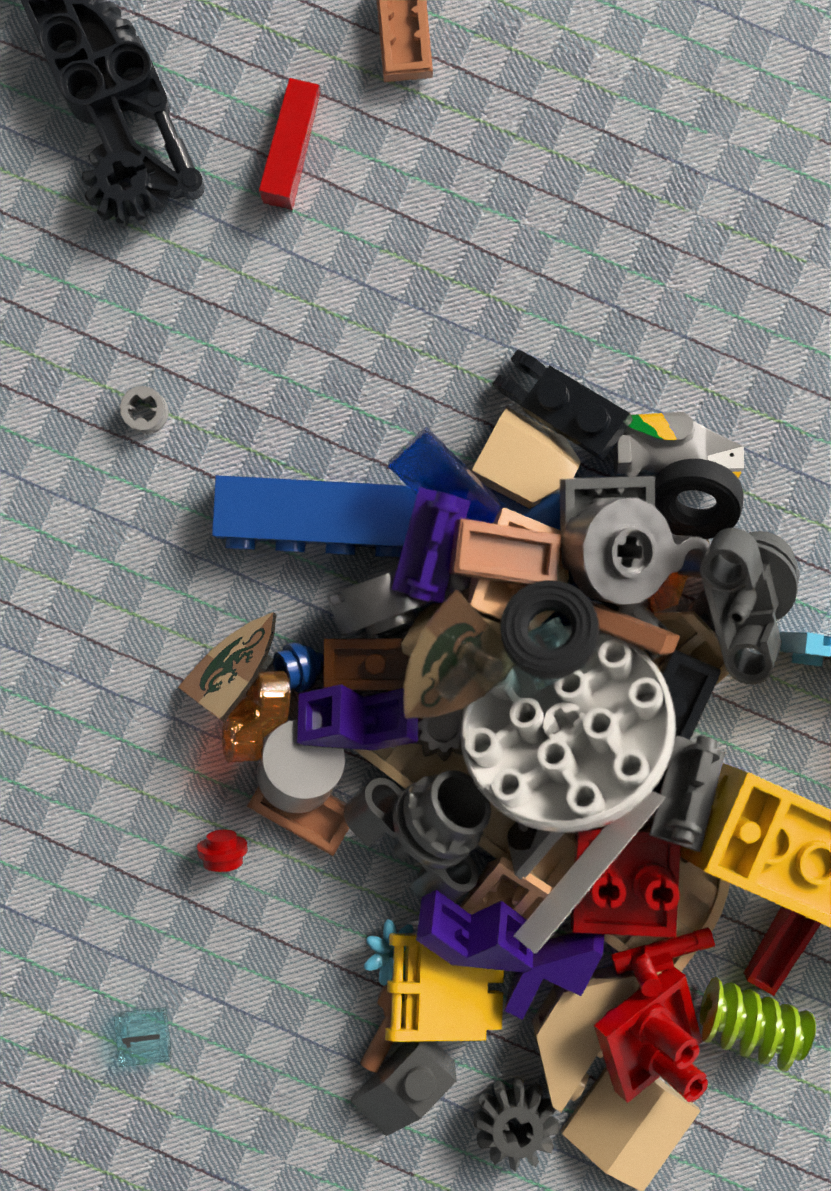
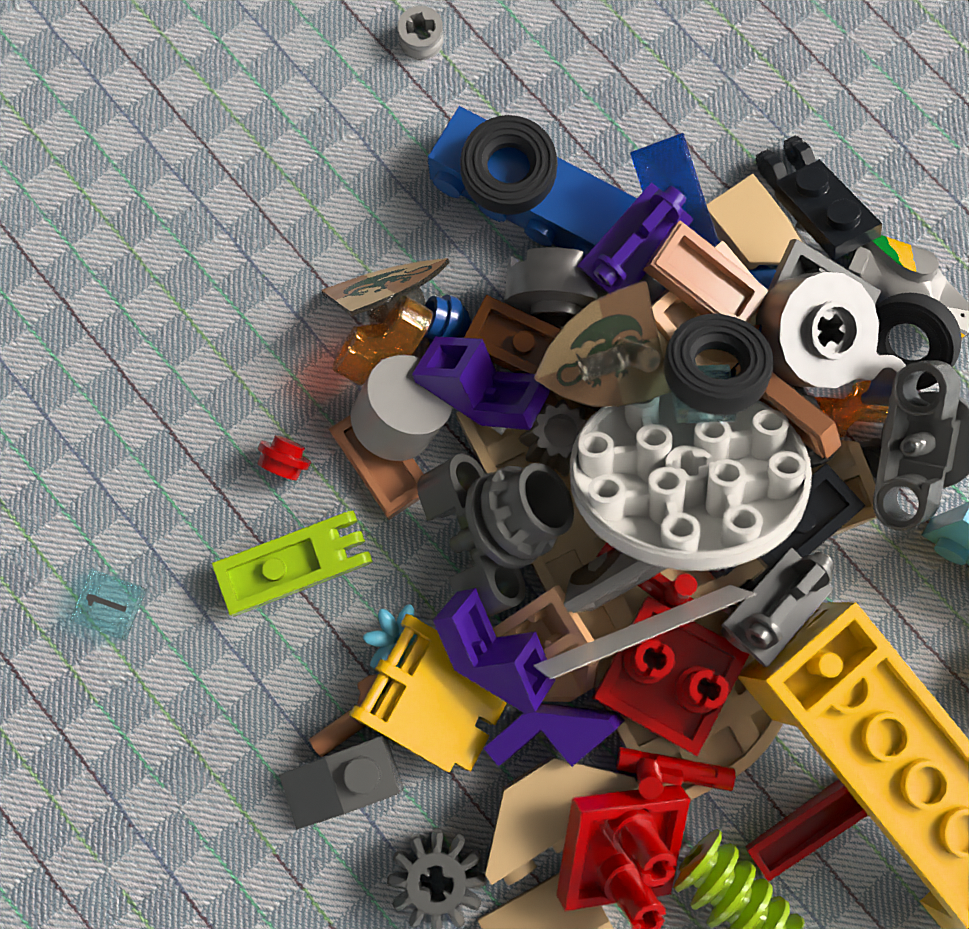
camera: 25 degrees right, 10 degrees down
(256, 503) = (513, 133): none -> black tyre
(273, 935) = (289, 564): none -> lime hinge

